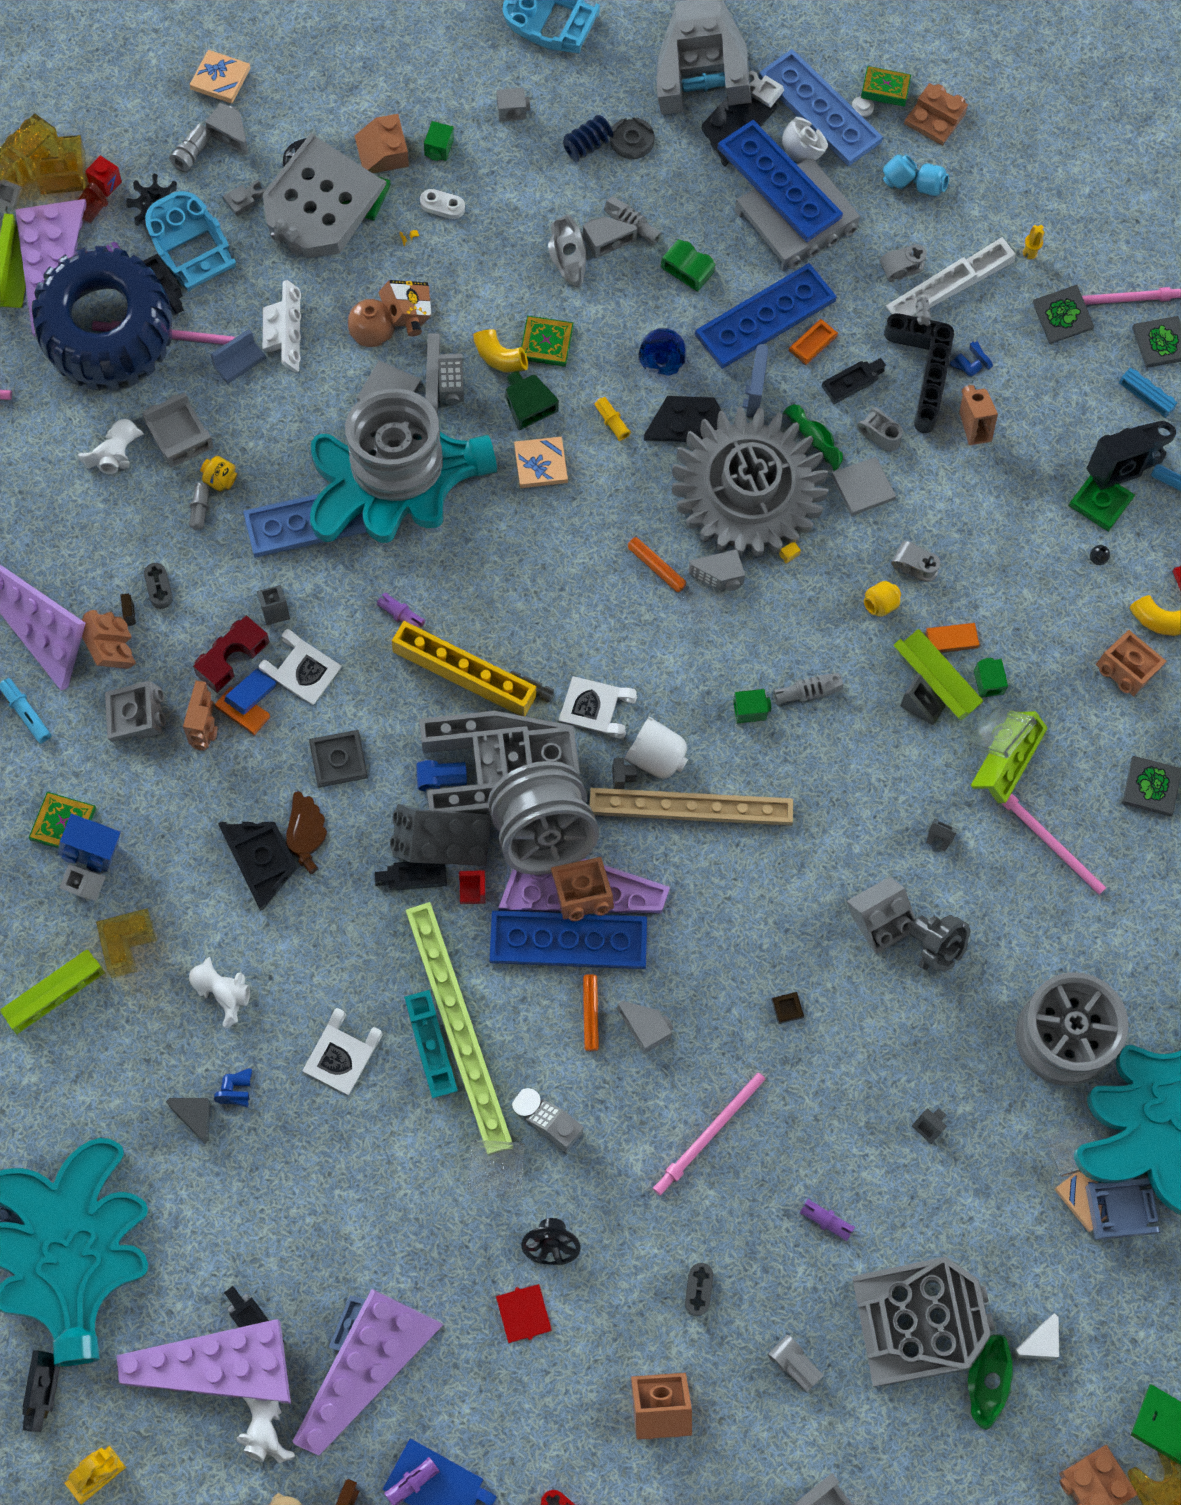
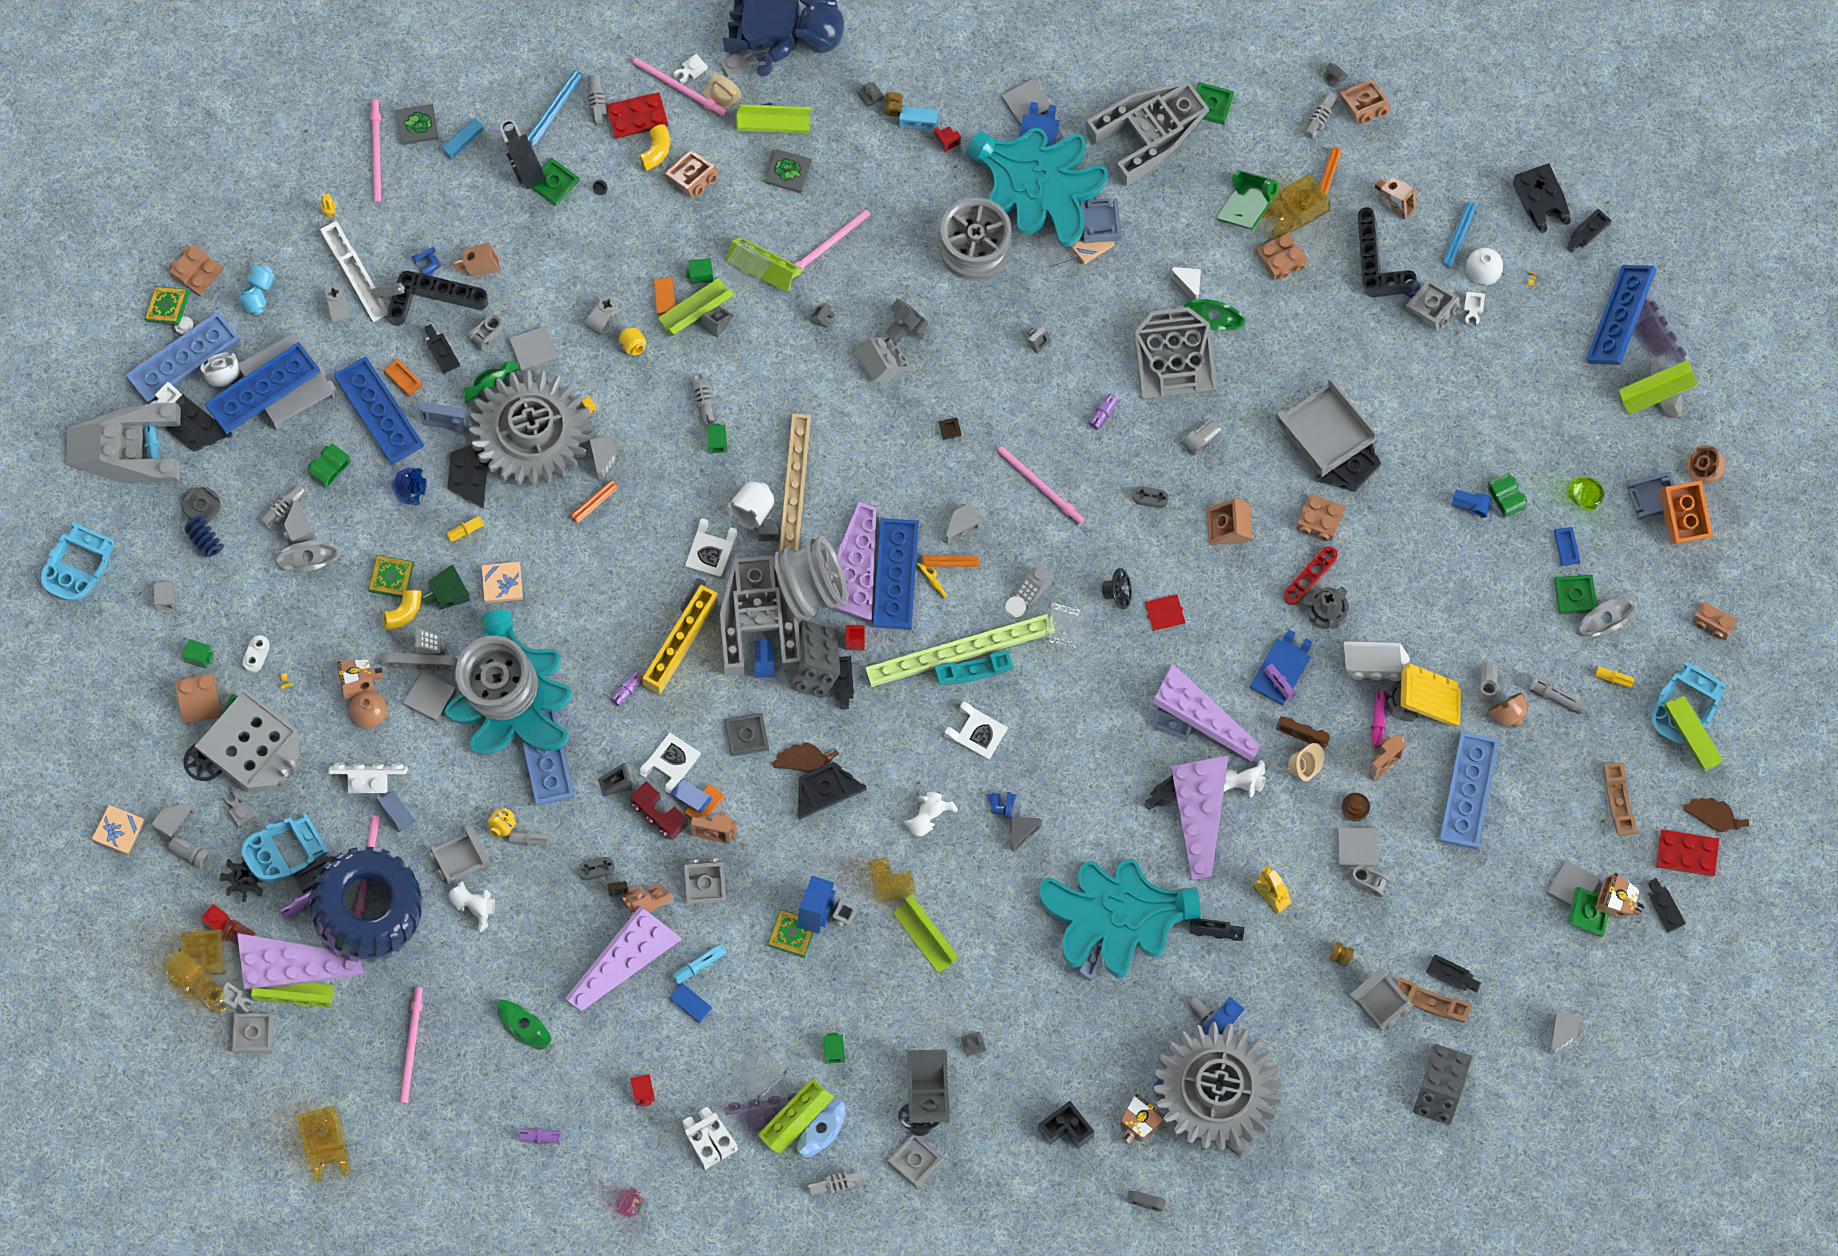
camera: 85 degrees left, 0 degrees up
(559, 991) = (932, 578): none -> yellow hand
(582, 889) = (861, 557): nougat plate -> none
(1063, 314) = (391, 192): dark grey tile -> none

